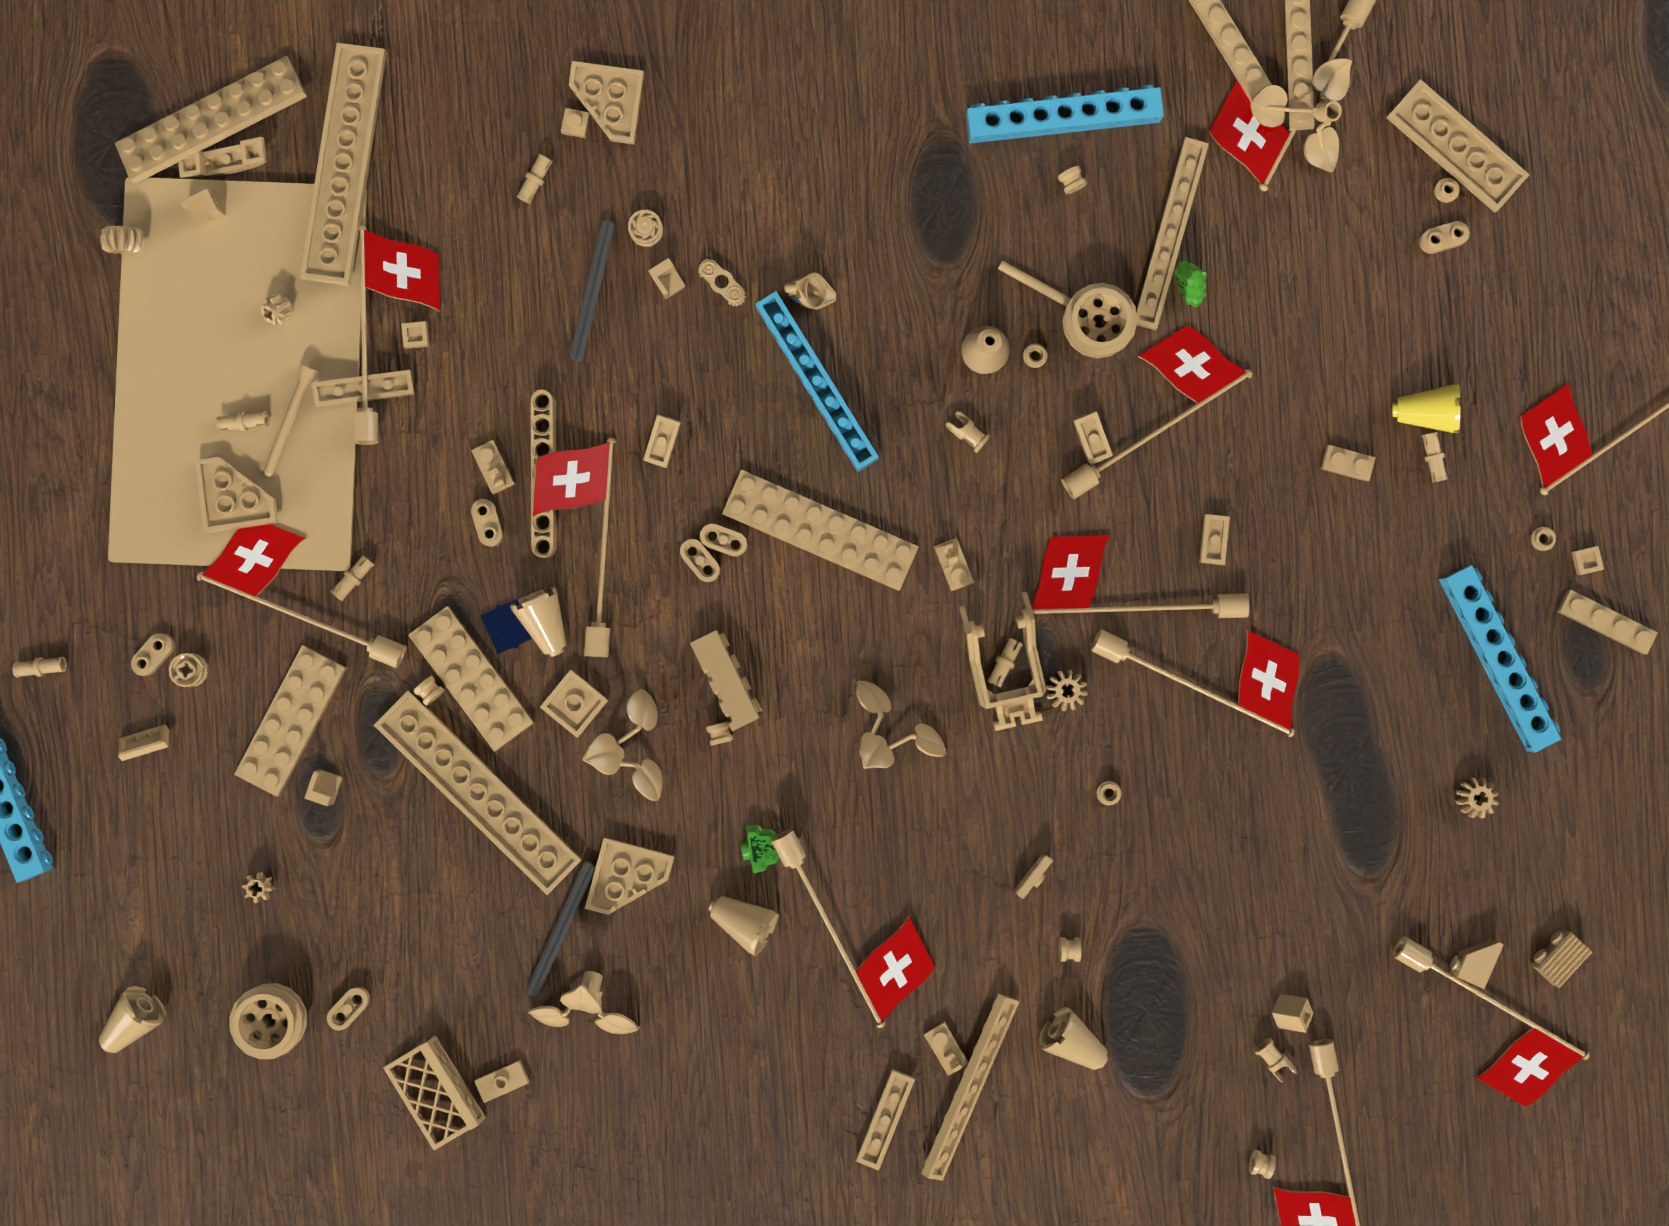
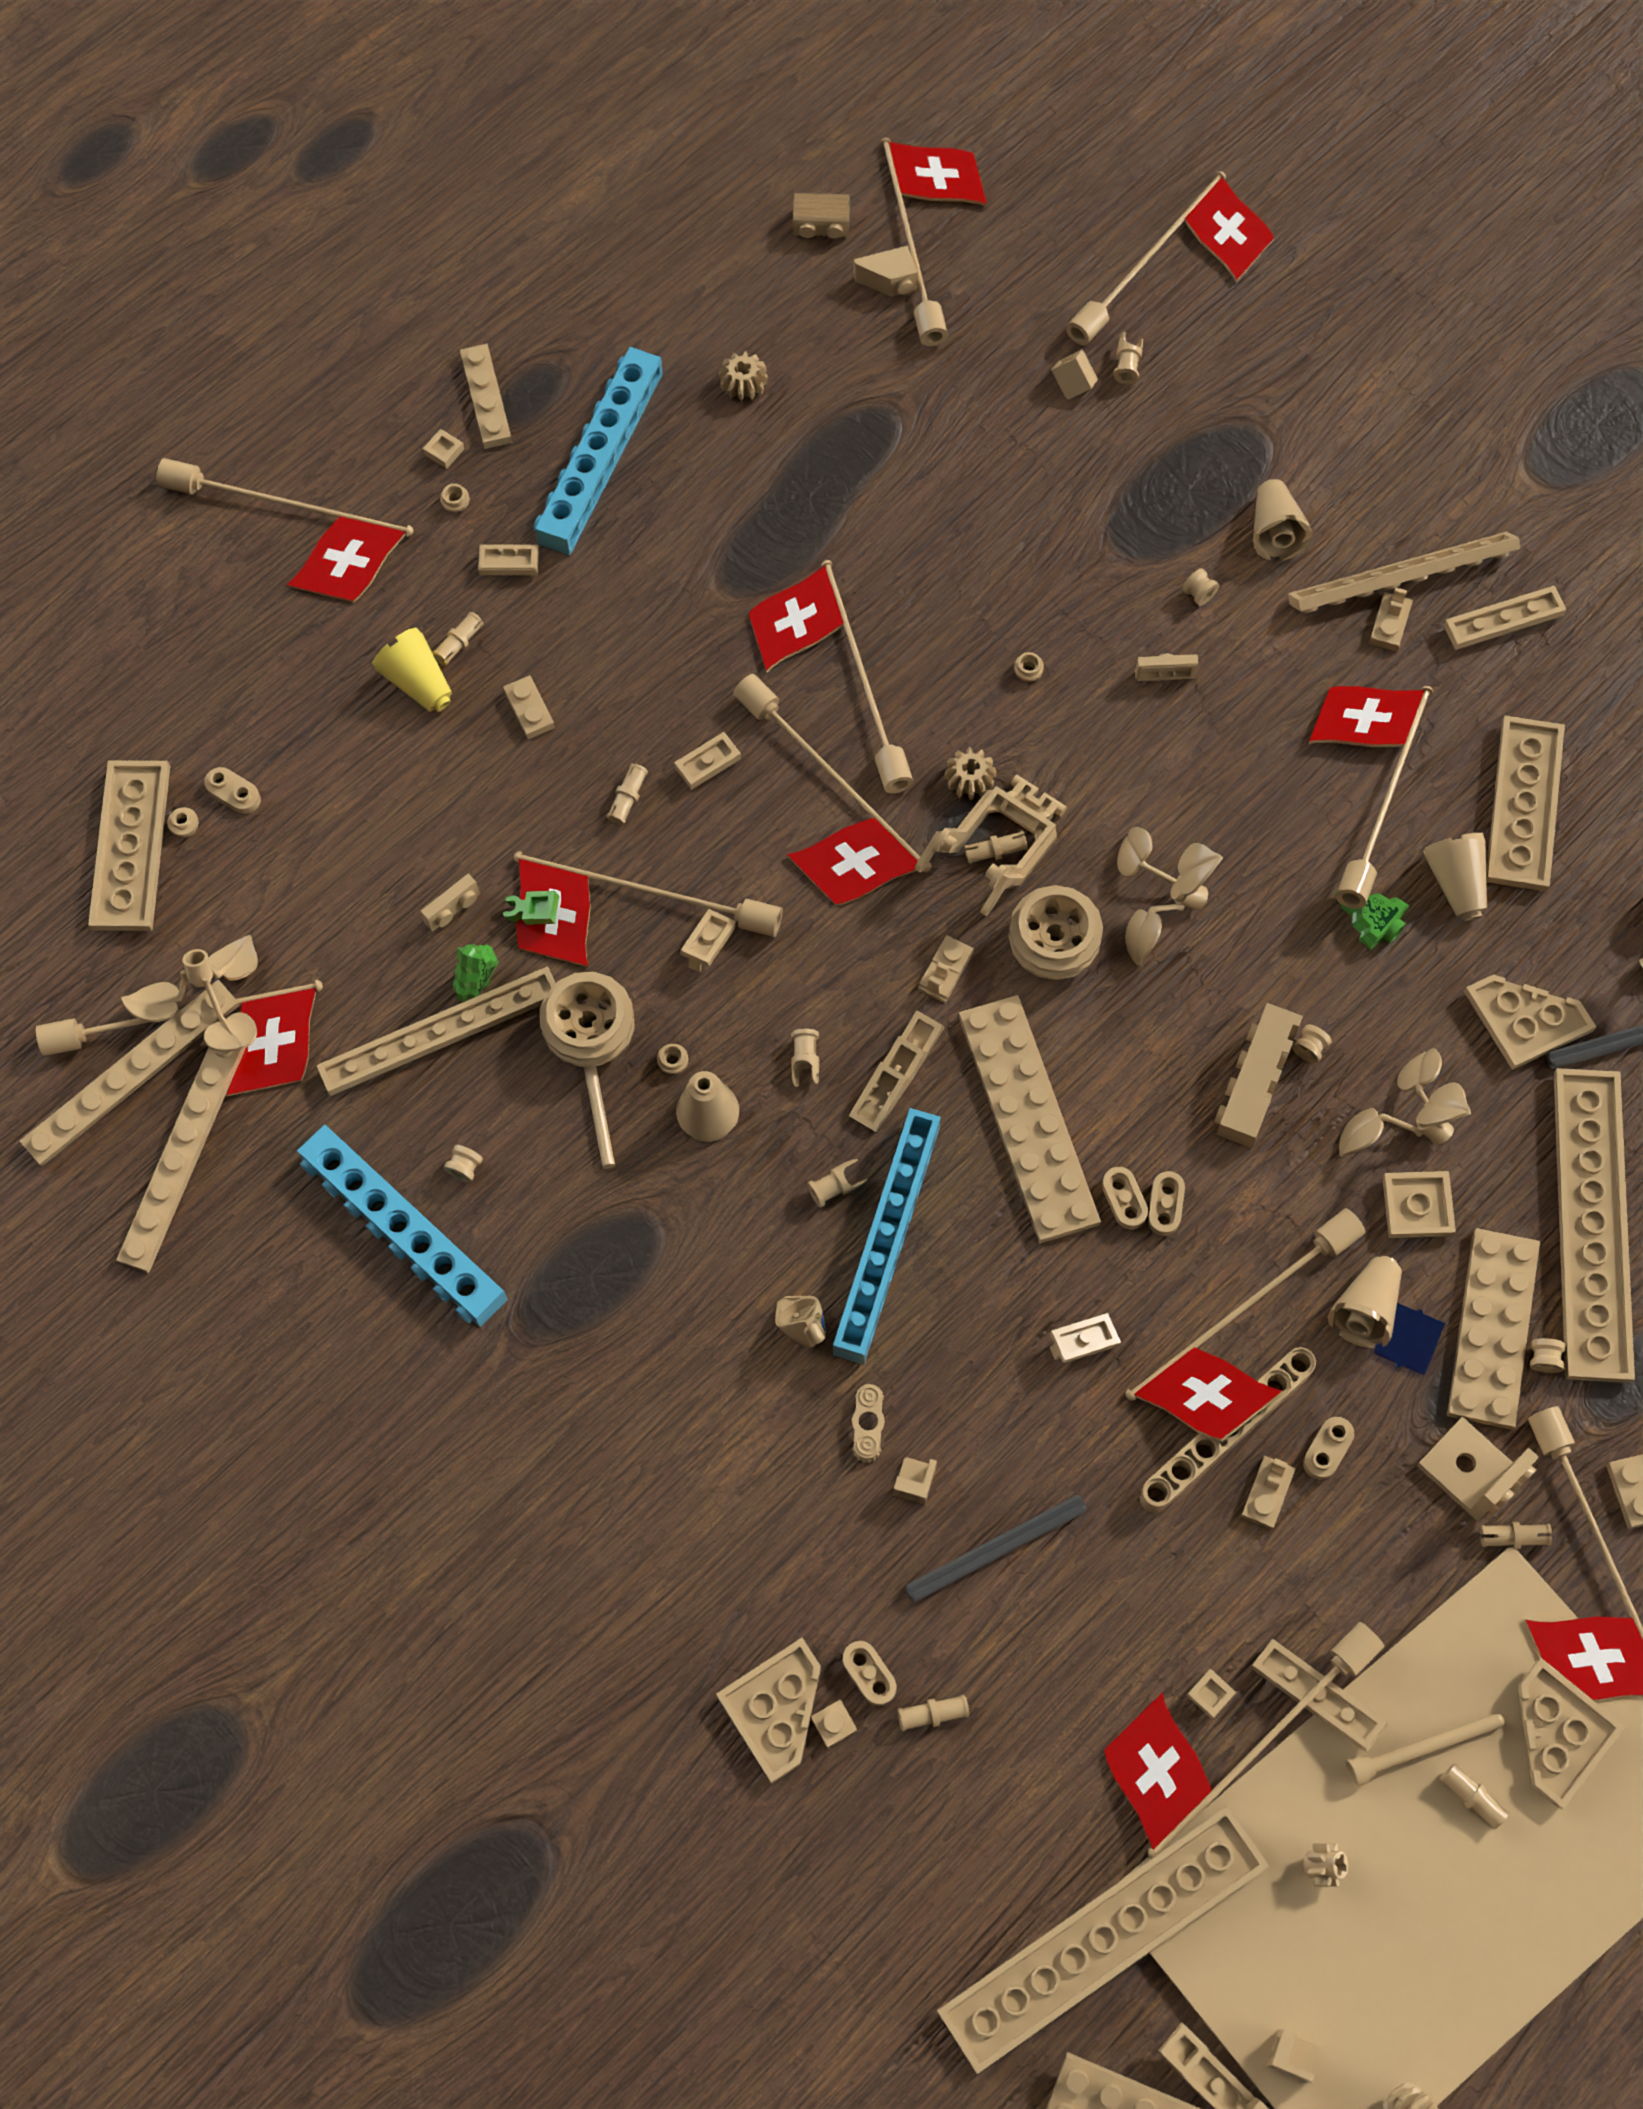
camera: 130 degrees left, 20 degrees down
(389, 589) = (1492, 1474): none -> tan bracket
(585, 163) = (870, 1673): none -> tan plate
(645, 228) = (882, 1547): tan wheel -> none
(756, 1009) = (1525, 803): none -> tan plate
(875, 382) = (832, 1184): none -> tan piece
(914, 478) = (896, 1071): none -> tan slope
(930, 622) = (1055, 958): none -> tan wheel
(1202, 352) = (537, 908): none -> bright green plate
(1233, 471) = (627, 794): none -> tan pin
(1249, 296) = (443, 908): none -> tan plate
(1262, 1164) = (1227, 300): tan wheel -> none
(1466, 535) = (508, 560): none -> tan plate

